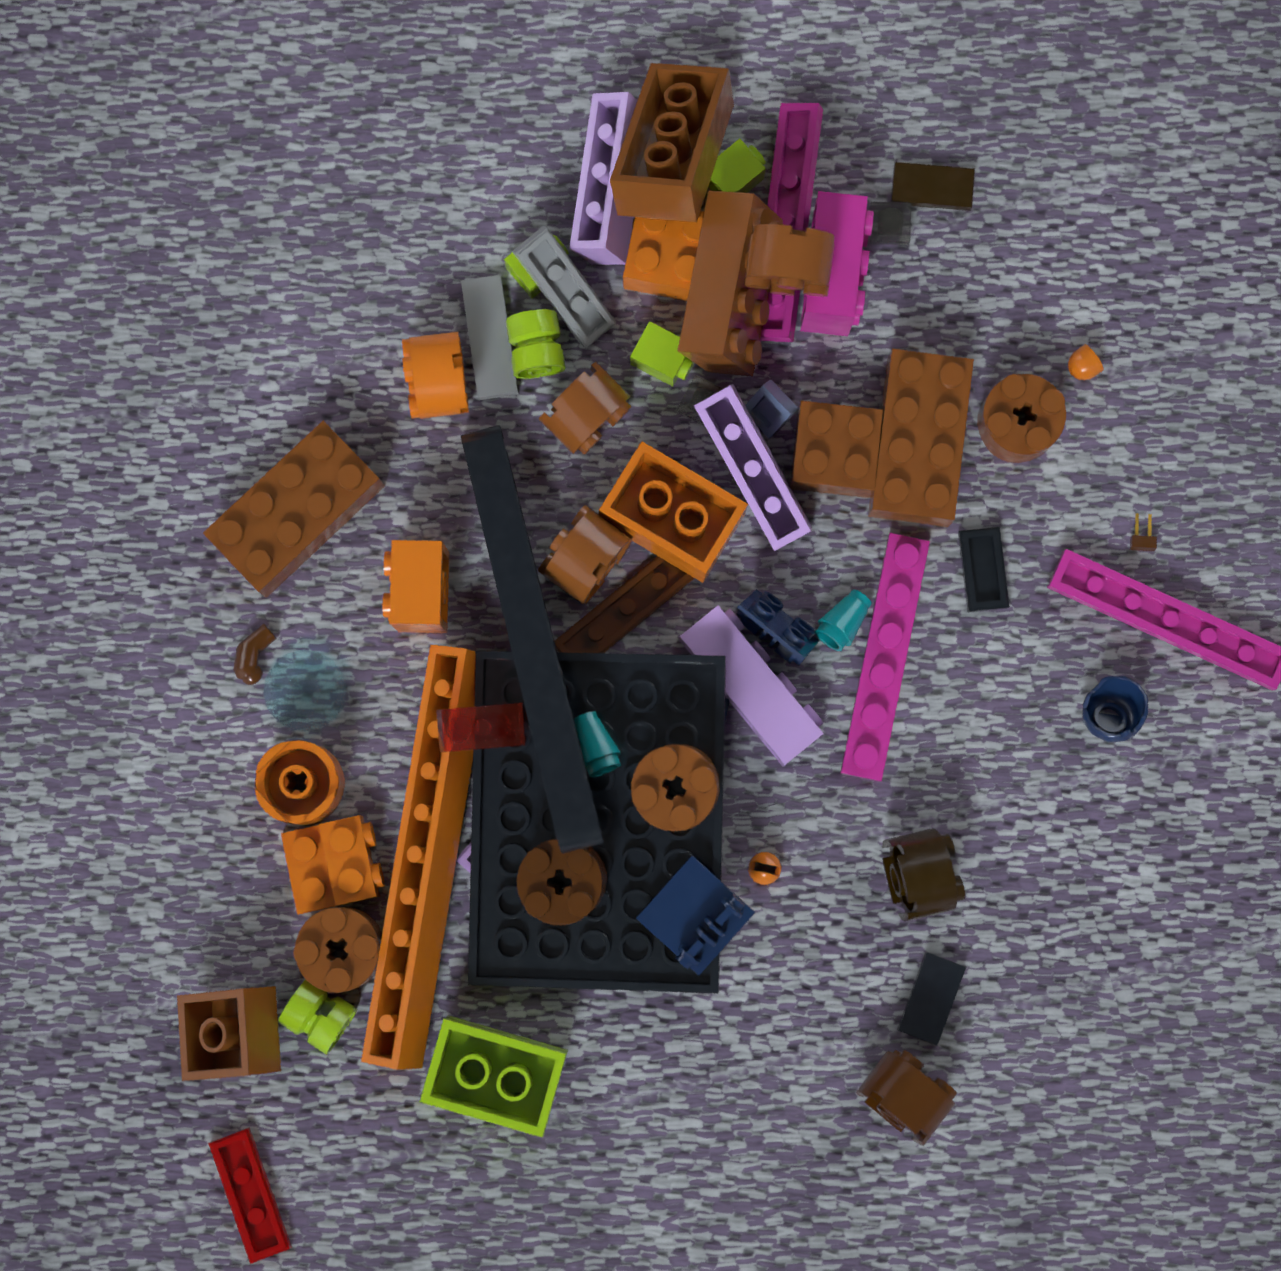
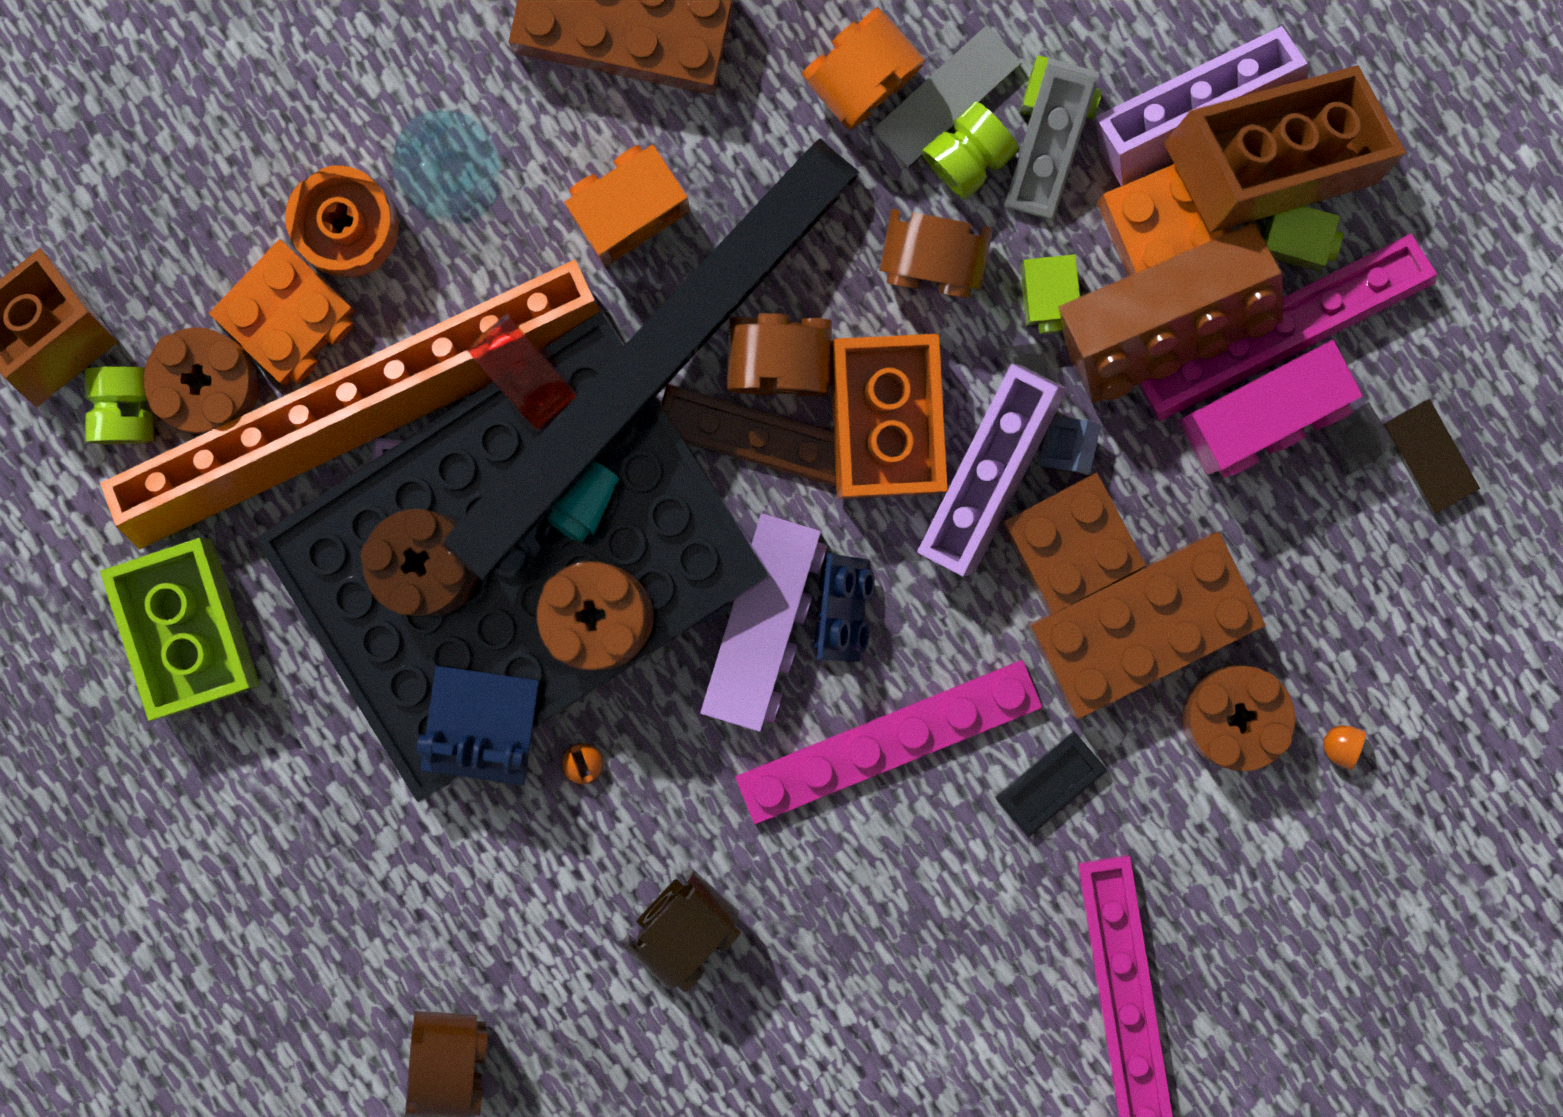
camera: 50 degrees right, 5 degrees up
(248, 653) = (441, 74): reddish brown arm -> none
(790, 260) = (1231, 361): dark orange brick -> none
(843, 621) = (896, 673): teal cone -> none
(931, 998) = (564, 1025): black tile -> none
(1129, 704) = (1009, 1030): dark blue hair -> none
(1143, 543) = (1193, 932): reddish brown piece -> none

